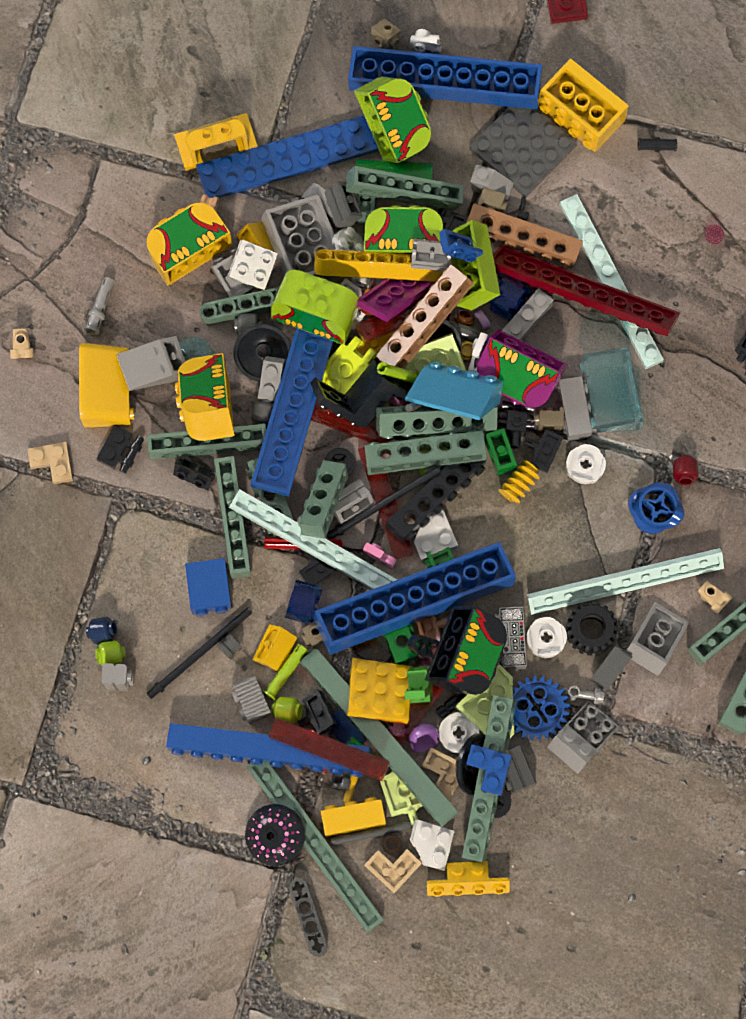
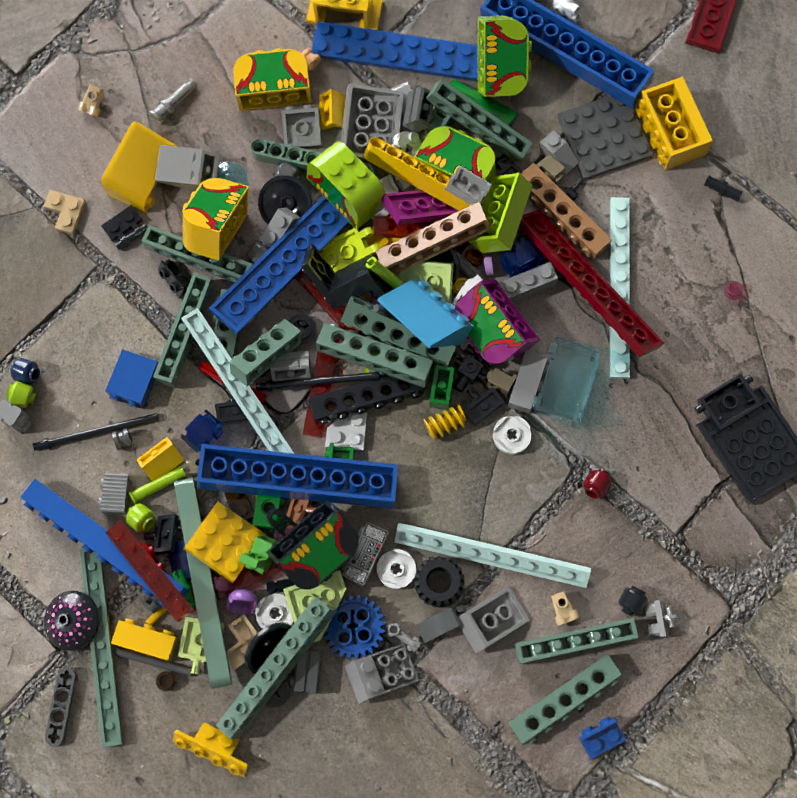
camera: 30 degrees right, 0 degrees up
(252, 264) = (314, 124): white plate -> none
(375, 551) = (289, 419): bright pink plate -> none
(395, 874) = (150, 707): tan plate -> none
(432, 843) = (199, 699): white plate -> none
(459, 246) = (494, 189): blue bracket -> none
(496, 767) = (283, 660): blue plate -> none
(646, 524) = (537, 515): blue piece -> none

